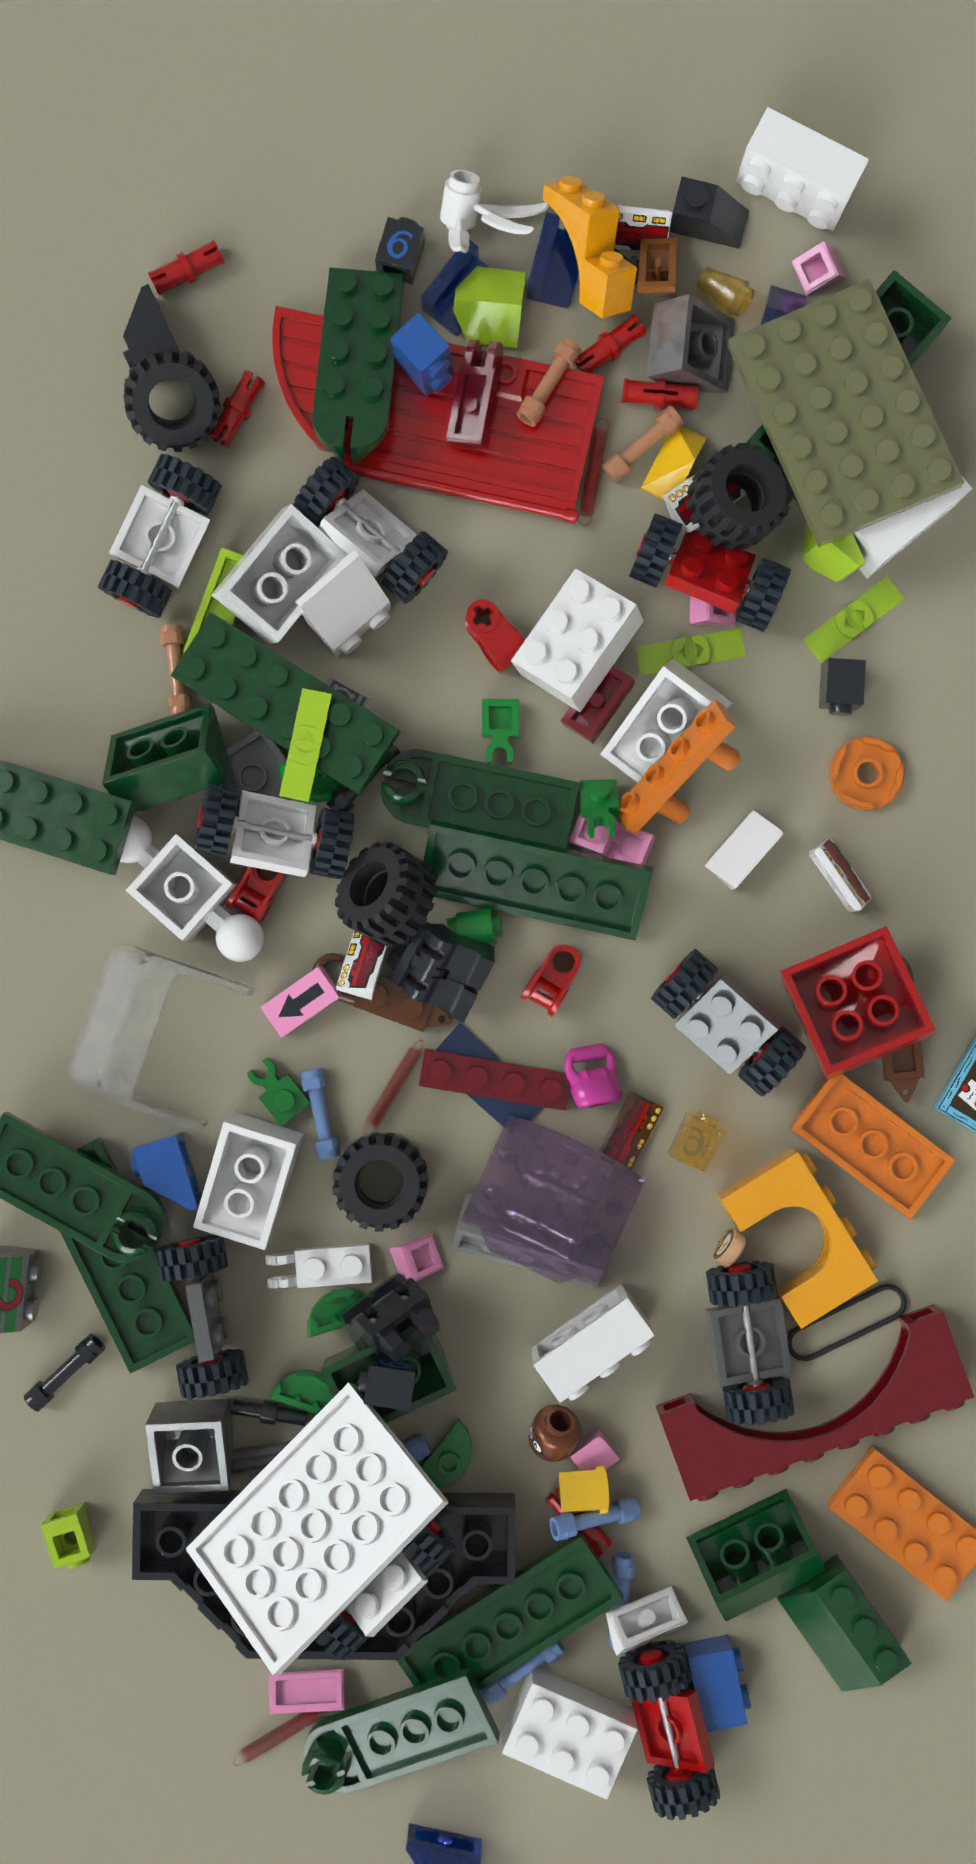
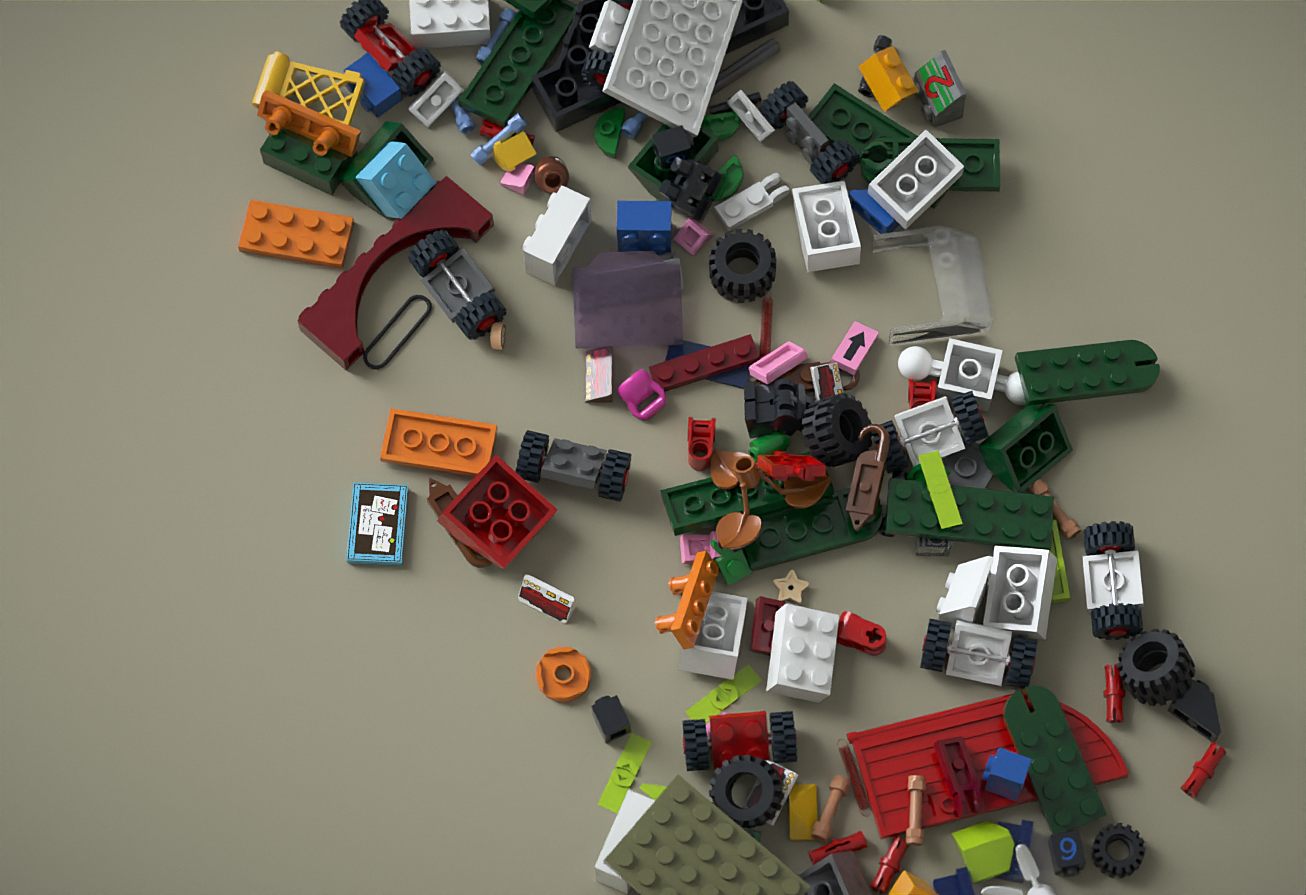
camera: 155 degrees right, 20 degrees down
(58, 1340) = (888, 78): none -> light orange brick
(103, 1171) = (915, 179): none -> white brick
(190, 1446) = (772, 59): flat silver slope -> none
(261, 1382) = (750, 115): none -> white slope
(282, 1096) = (834, 287): green plate -> none
(326, 1145) = (788, 273): medium blue bar -> none
(335, 203) = (1118, 833): none -> black tyre
(384, 805) = (868, 478): none -> reddish brown plate
(406, 1029) = (778, 362): none -> bright pink tile
(472, 866) = (783, 466): none -> red plate
(478, 1296) = (644, 226): none -> blue brick
(500, 722) = (824, 581): green plate -> none
(539, 747) = (791, 580): none -> tan plate
(539, 913) = (731, 468): none -> dark orange plant
(696, 1141) = (554, 387): clear yellow brick -> none
(743, 849) = (619, 583): white slope -> none
(759, 1528) = (395, 180): none -> medium azure brick
(814, 1646) = (311, 124): none -> orange plate
(840, 1268) = (478, 392): light orange arch -> none
(845, 1741) = (279, 76): none -> yellow piece

